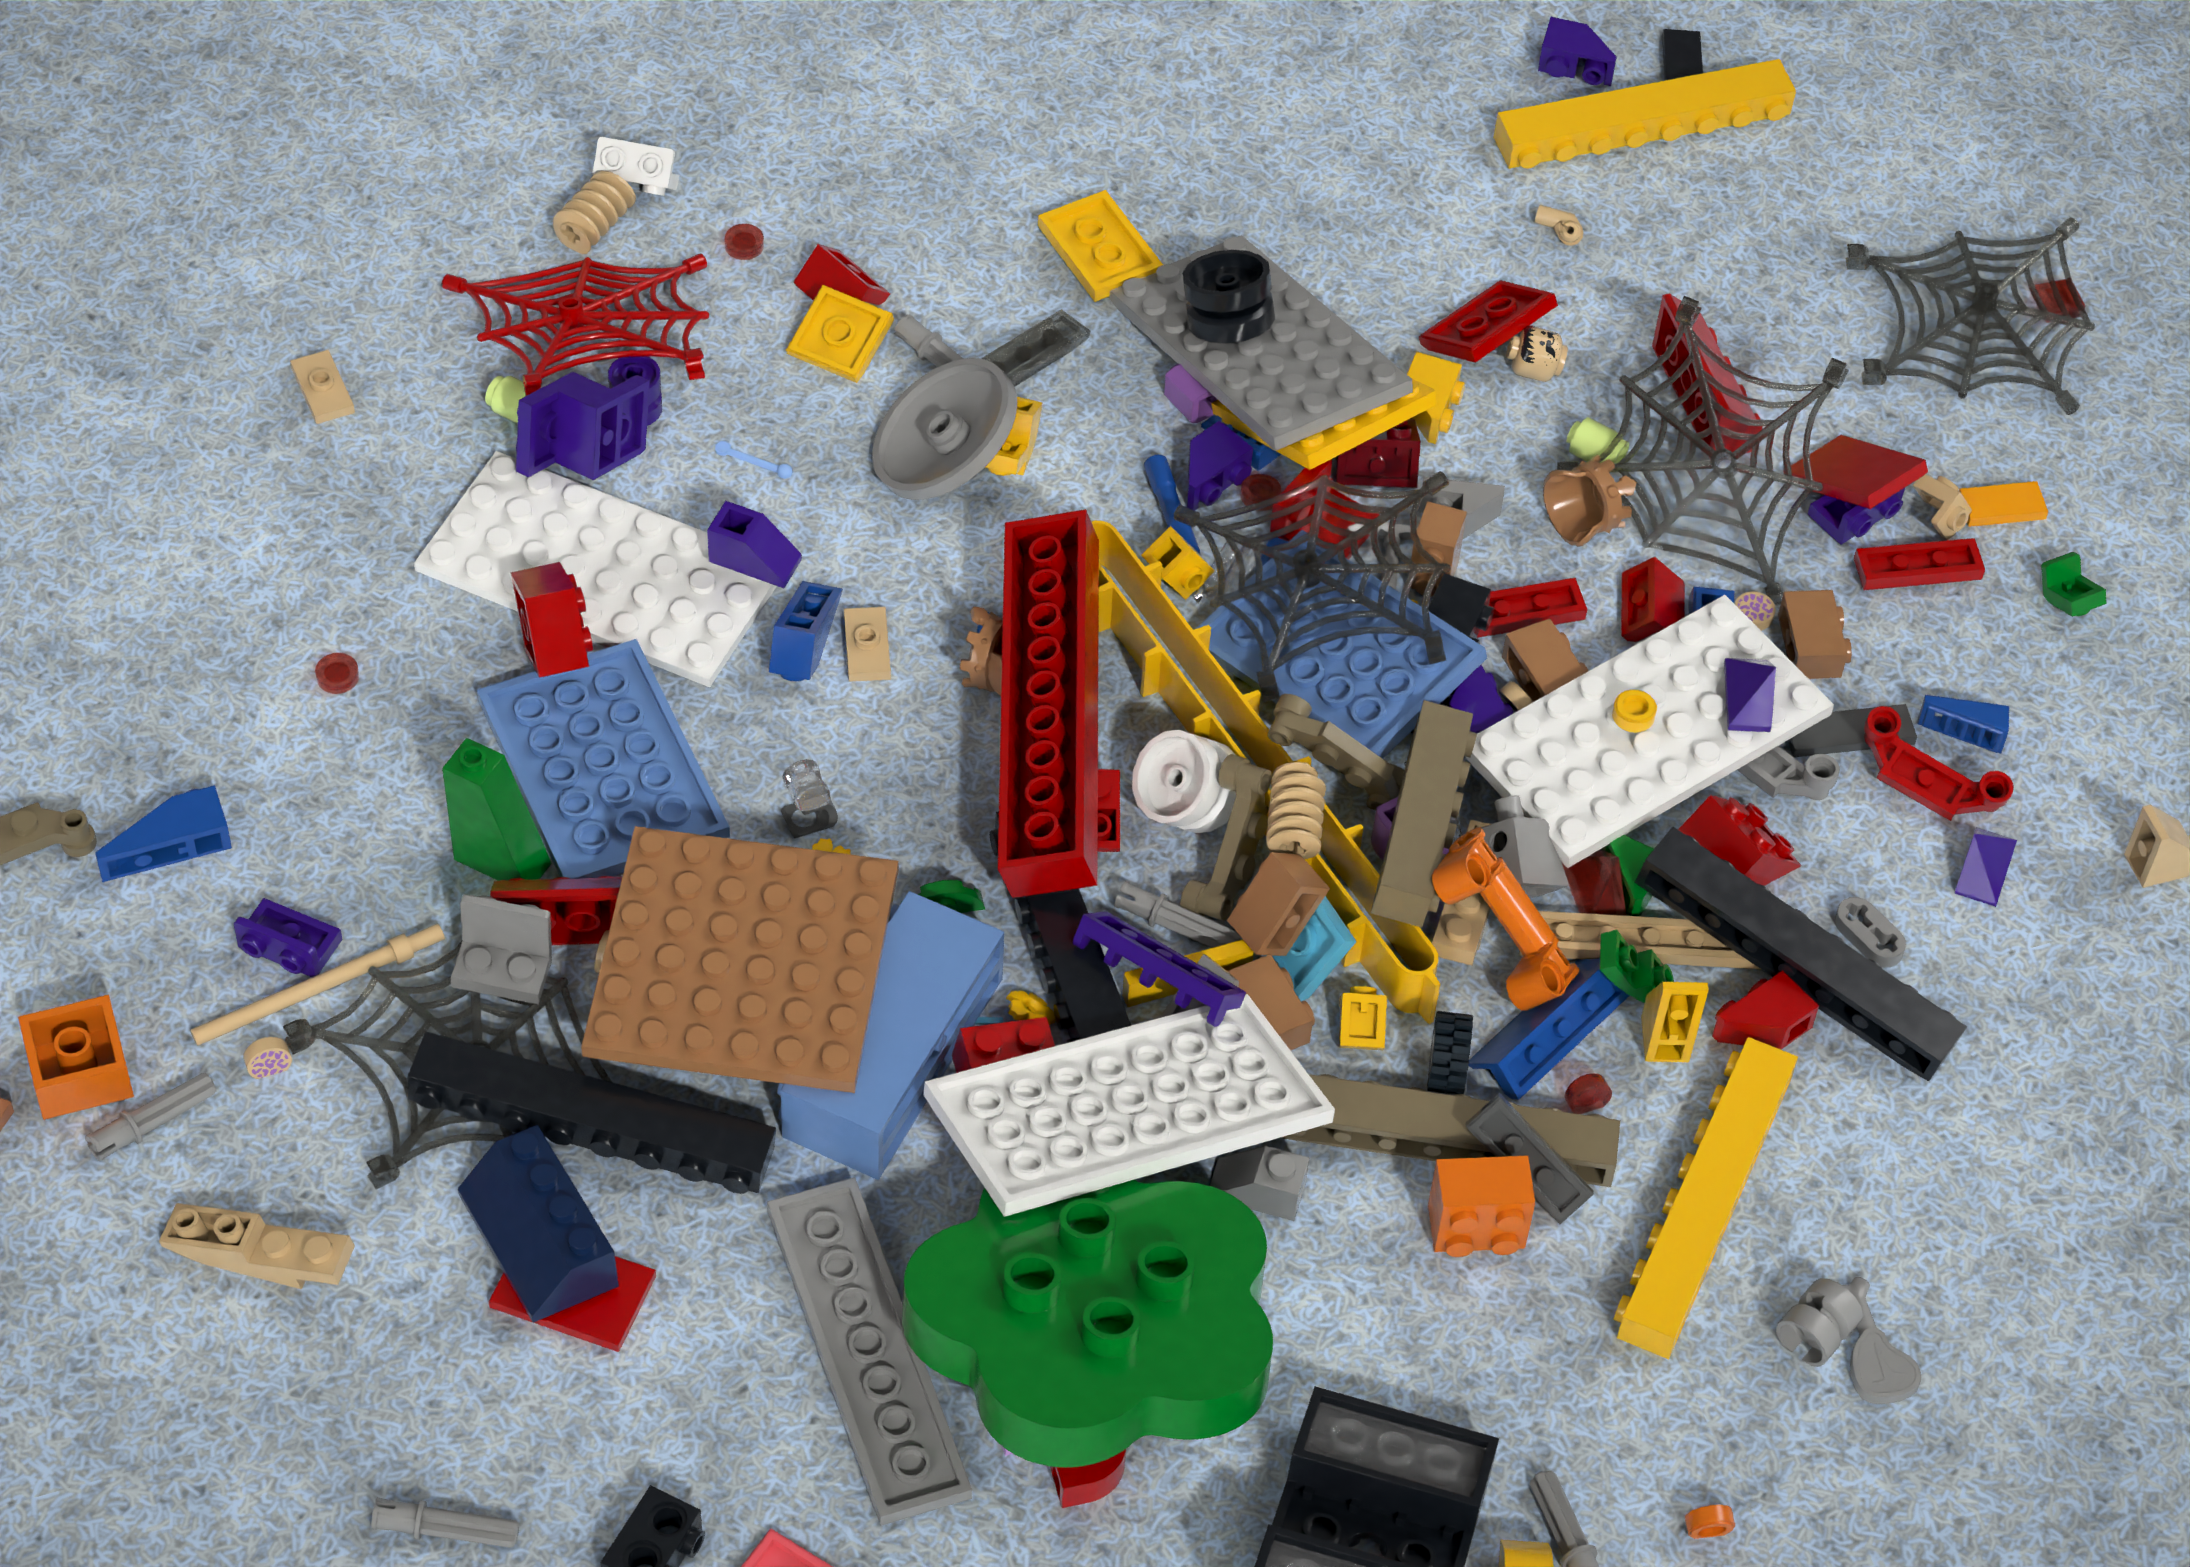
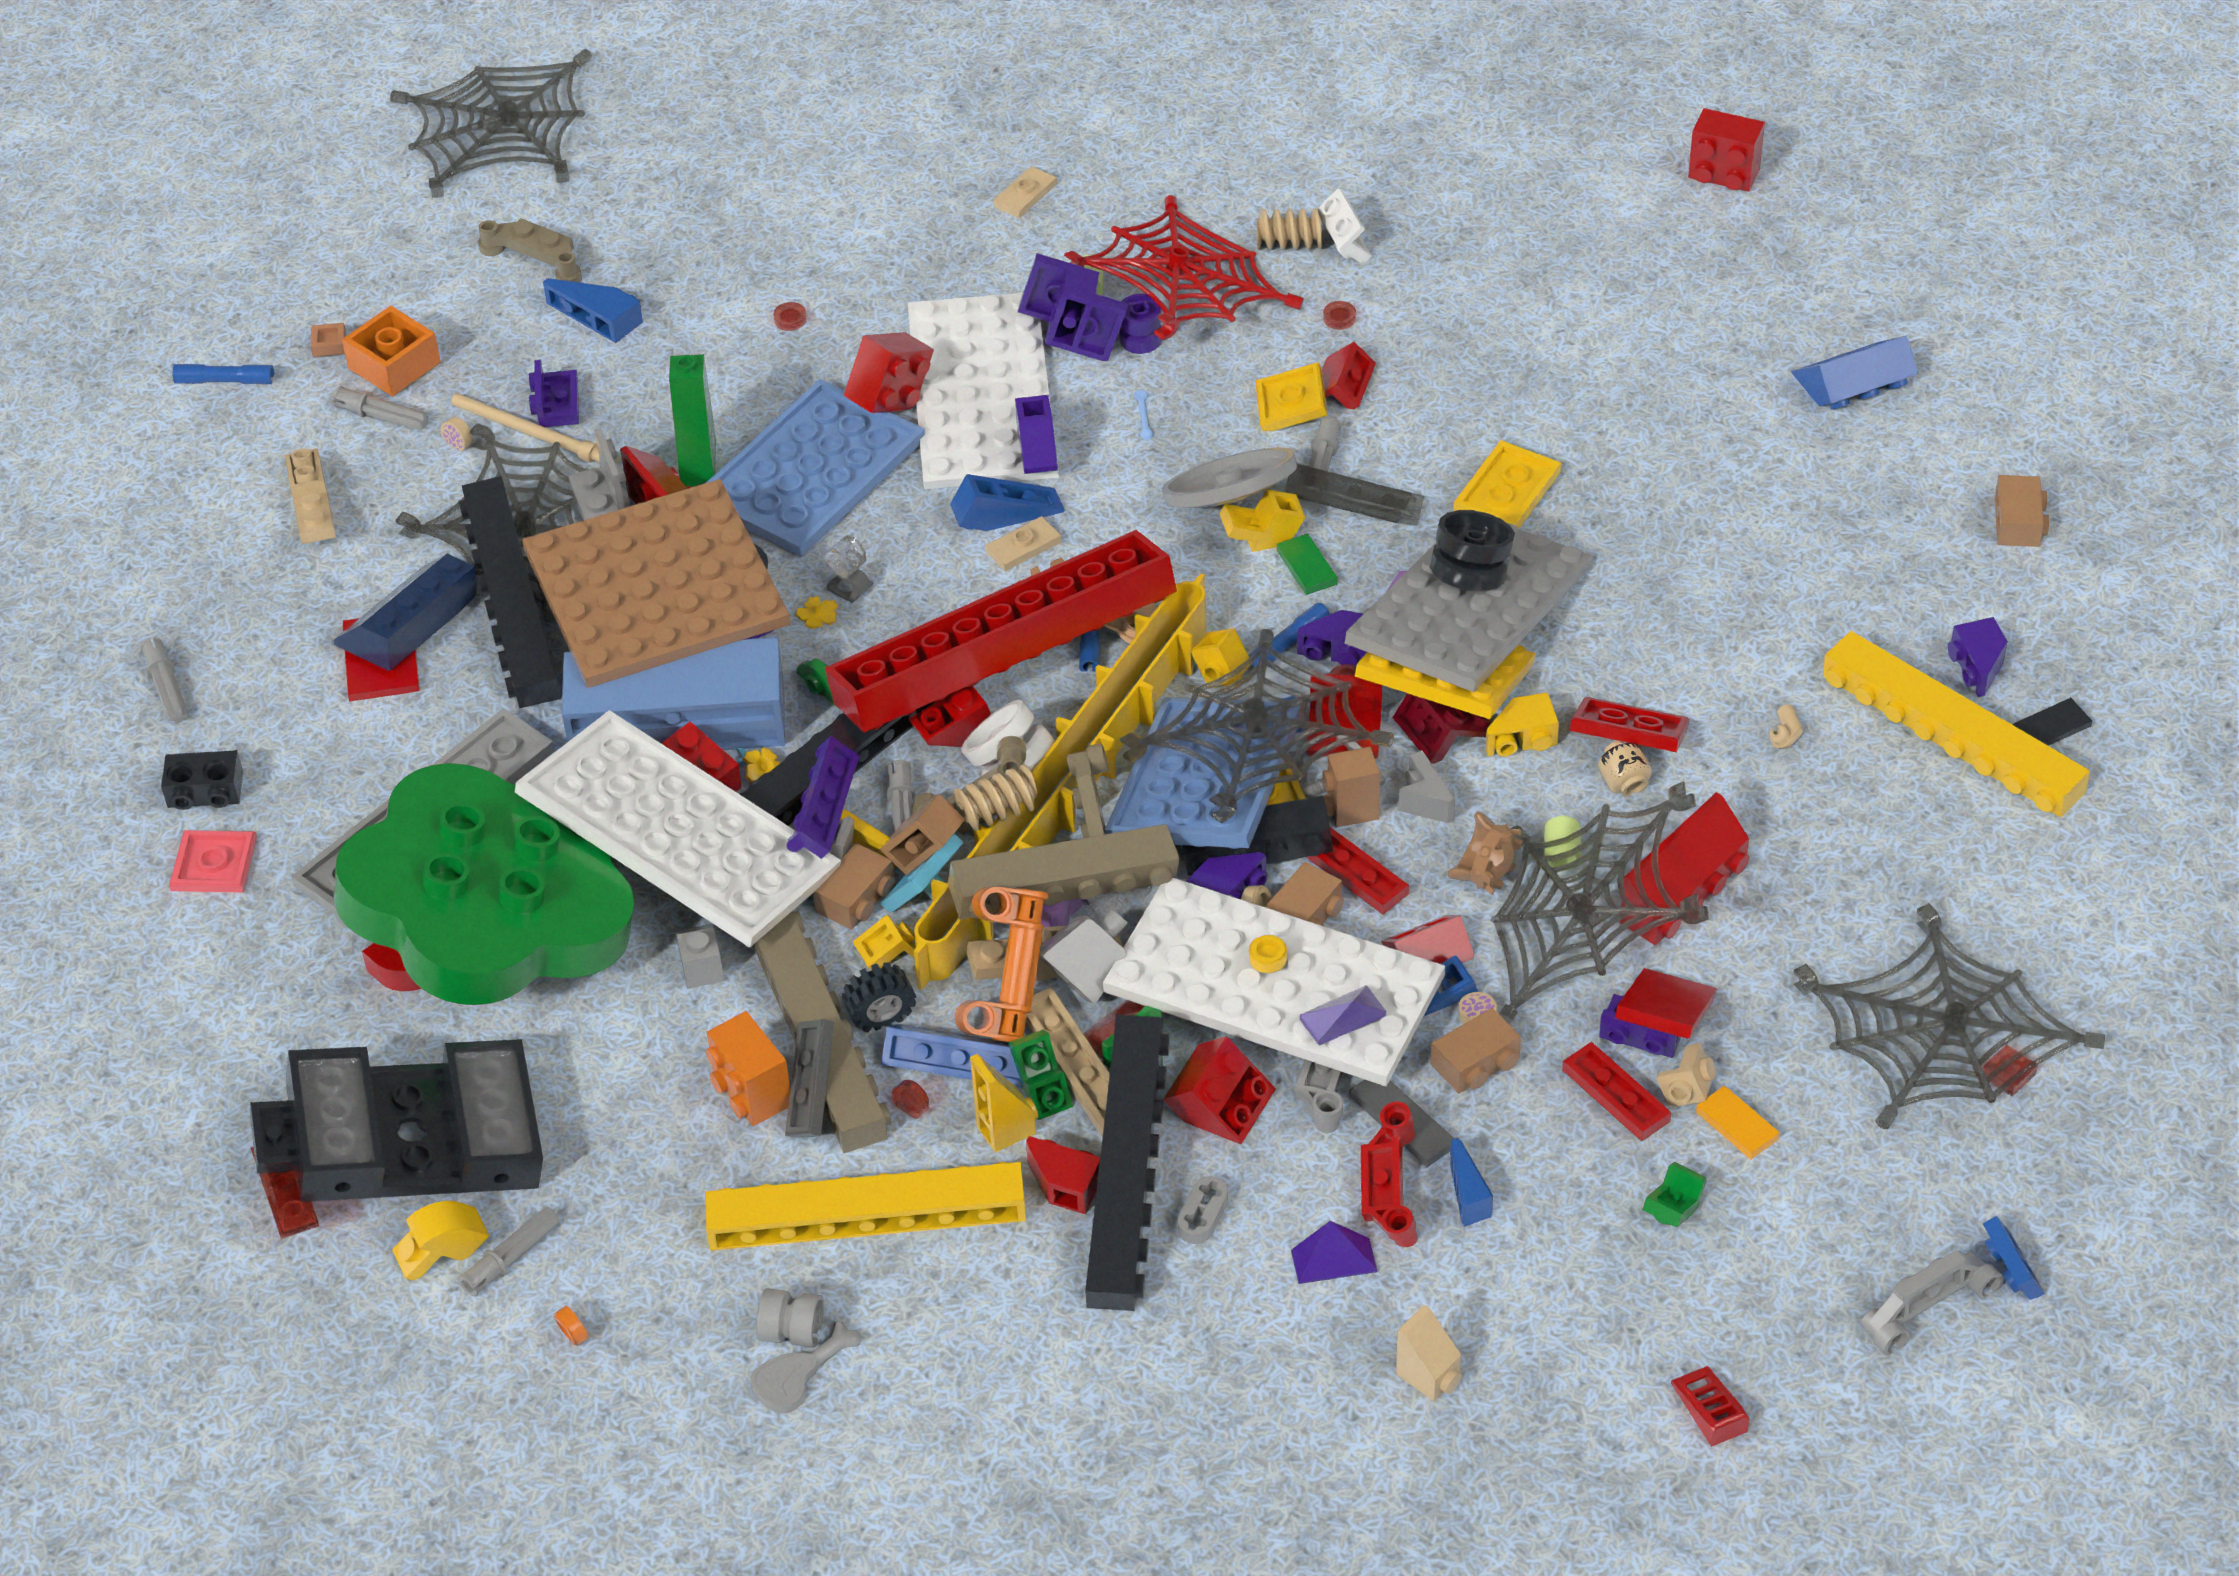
camera: 65 degrees right, 5 degrees down
(1079, 441) = (1307, 564): none -> green tile

